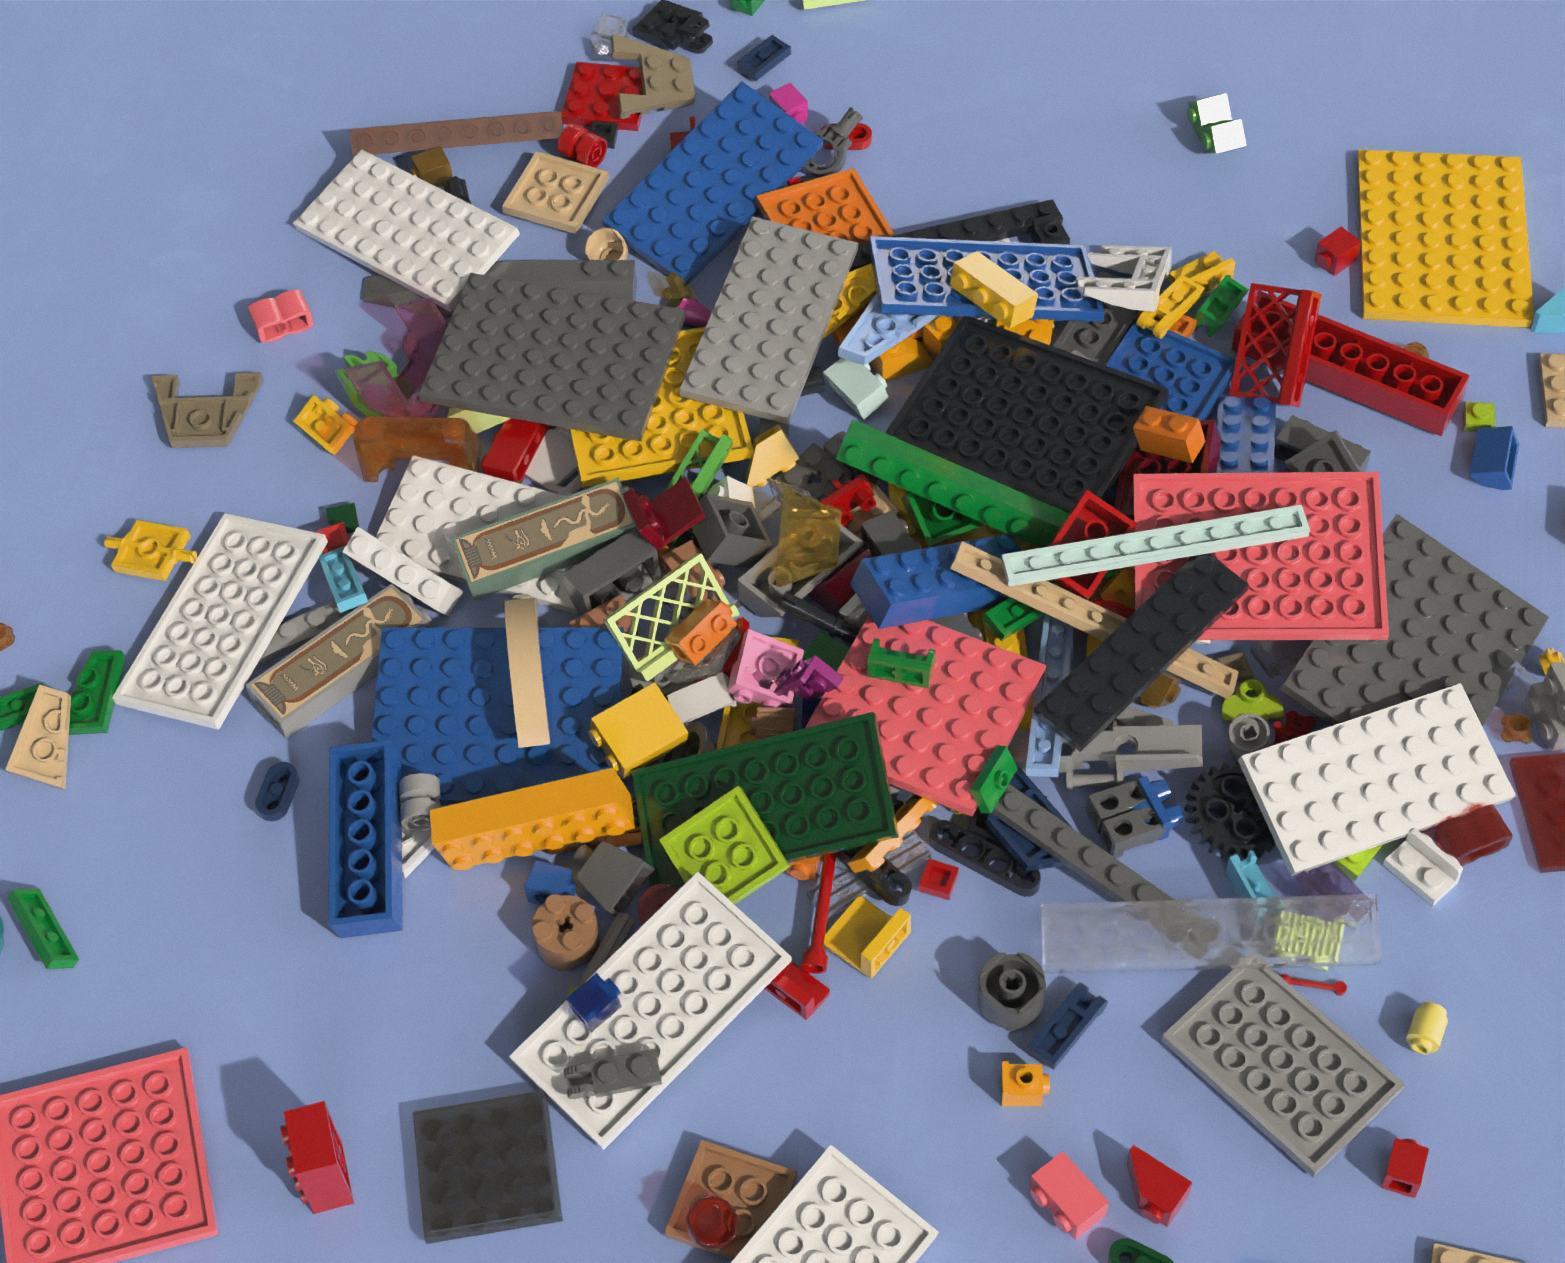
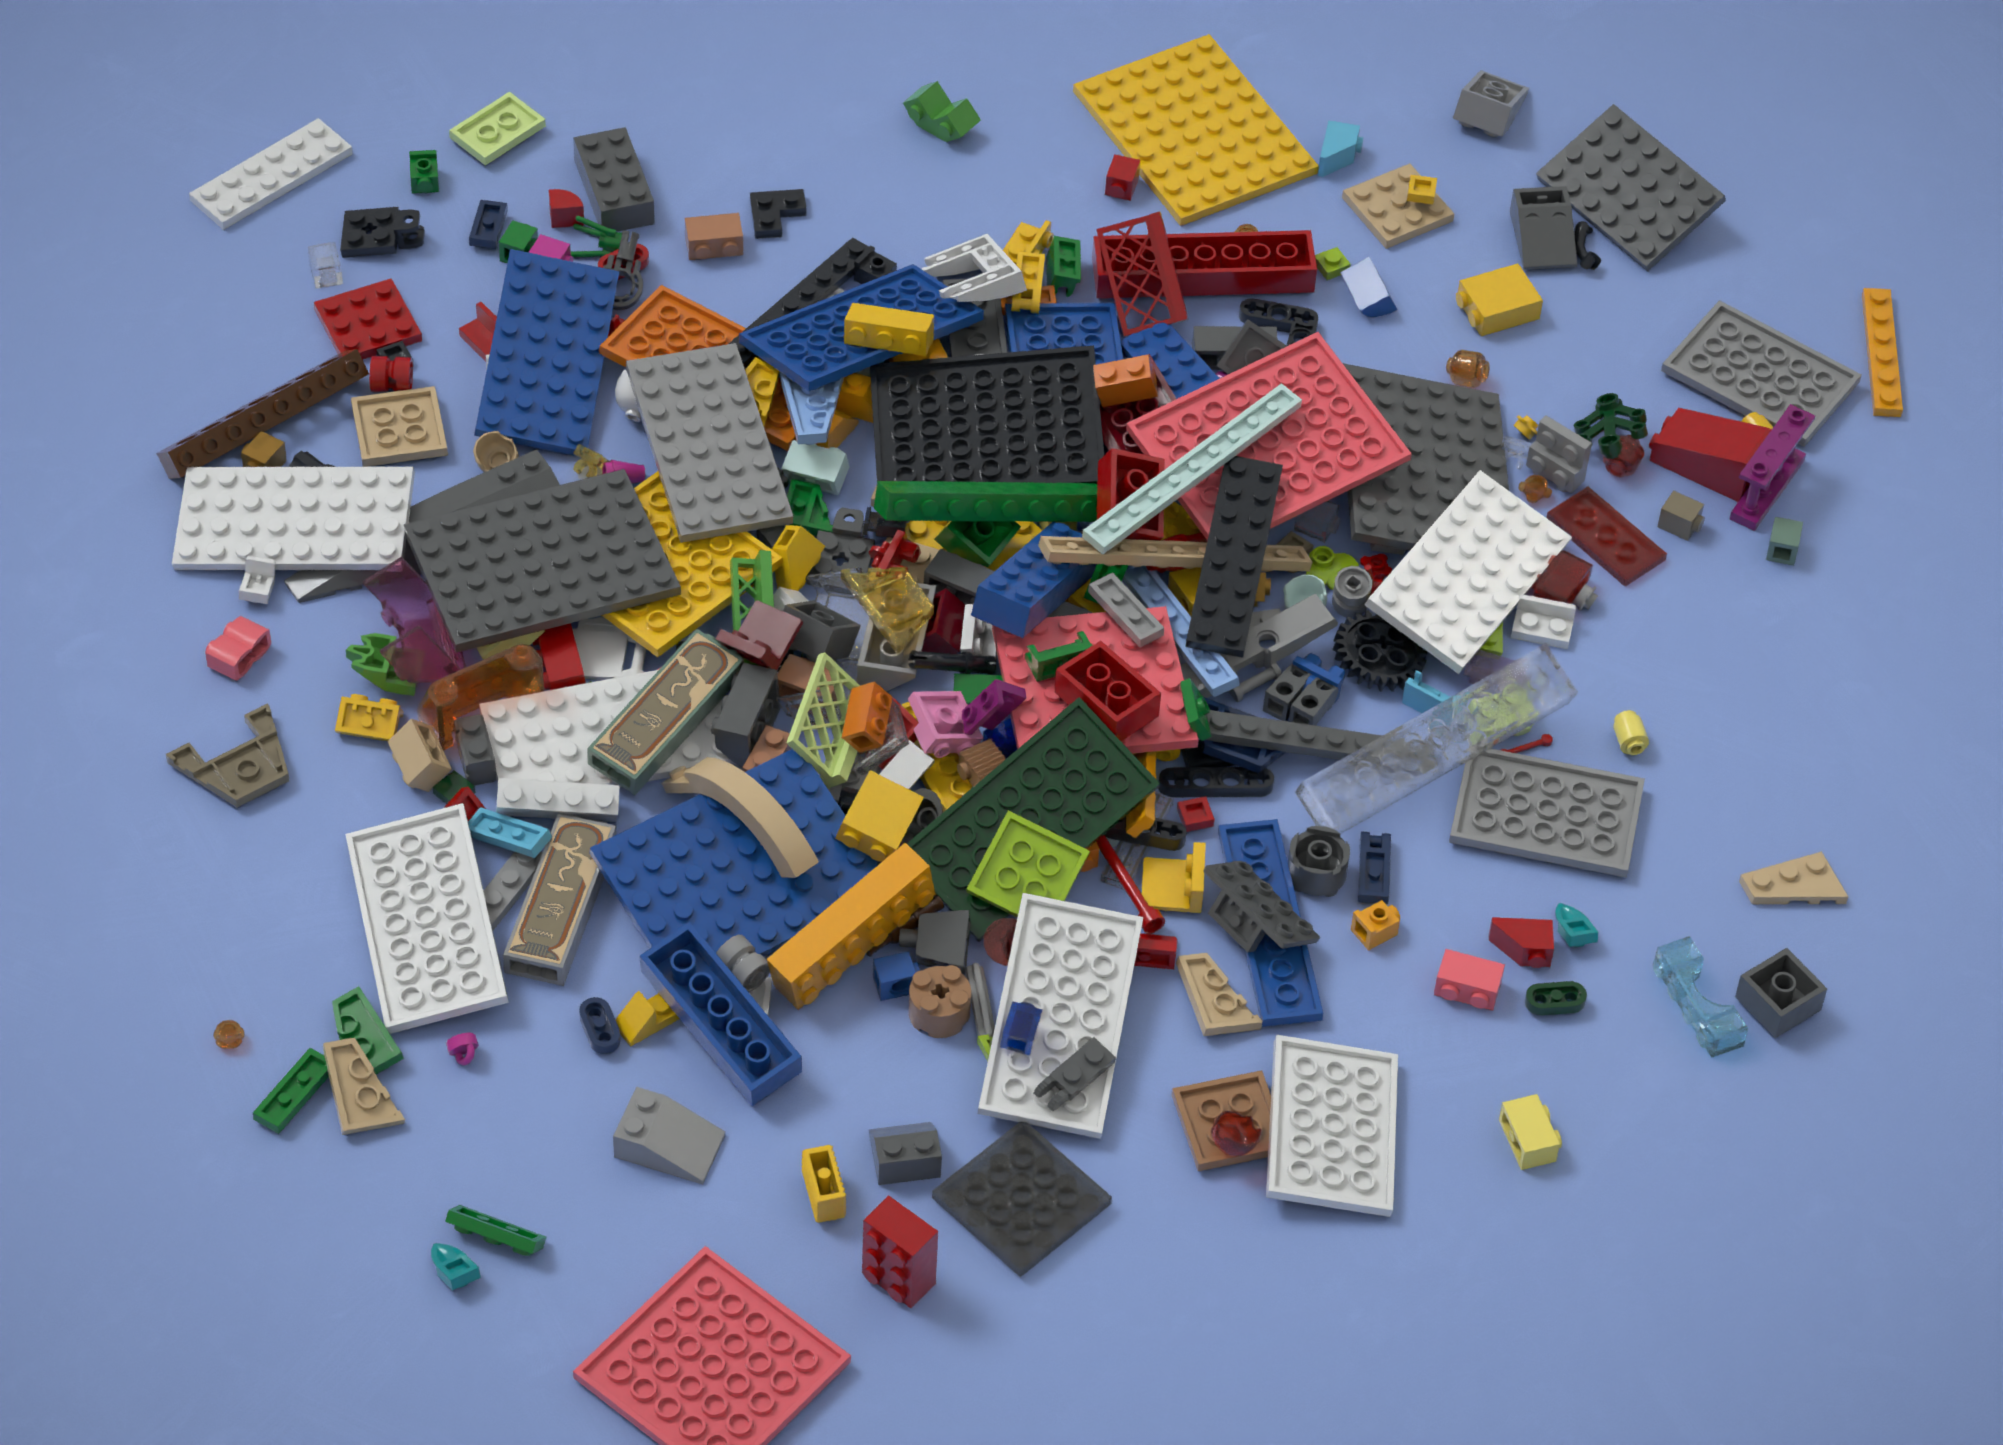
camera: 40 degrees left, 5 degrees down
(150, 550) = (304, 896): yellow plate -> none
(156, 747) = (462, 1044): none -> dark pink tile
(243, 925) = (666, 1137): none -> light grey slope
(311, 804) = (644, 1017): none -> yellow slope
(325, 1049) = (823, 1183): none -> yellow brick
(332, 475) = (419, 755): none -> tan brick
(340, 269) = (257, 580): none -> white bracket
(378, 492) = (475, 749): none -> dark grey brick
(424, 1058) = (906, 1153): none -> dark grey slope
(664, 77) = (410, 278): dark tan wing -> none
(771, 78) = (517, 237): none -> green brick
(813, 1073) = (1212, 999): none -> tan wing
(821, 417) = (808, 507): none -> green wing
(832, 71) = (564, 208): none -> red brick
(841, 110) = (608, 240): none -> green plant
(891, 65) = (614, 180): none -> dark grey brick
(910, 721) = (1109, 689): none -> red brick
(911, 1006) = (1251, 909): none -> dark grey bracket
(922, 1028) = (1279, 976): none -> blue plate
(936, 147) = (714, 236): none -> nougat brick
(998, 650) = (1126, 610): none -> light grey plate
(1008, 143) = (770, 206): none -> black plate
(1209, 715) = (1302, 588): none -> light aqua hair
(1218, 1199) = (1575, 926): none -> teal plate
(1394, 456) = (1296, 328): none -> black beam
(1405, 1167) = (1685, 834): red brick -> none
(1486, 864) = (1585, 597): none -> light grey plate
(1535, 578) = (1468, 368): none -> clear orange head

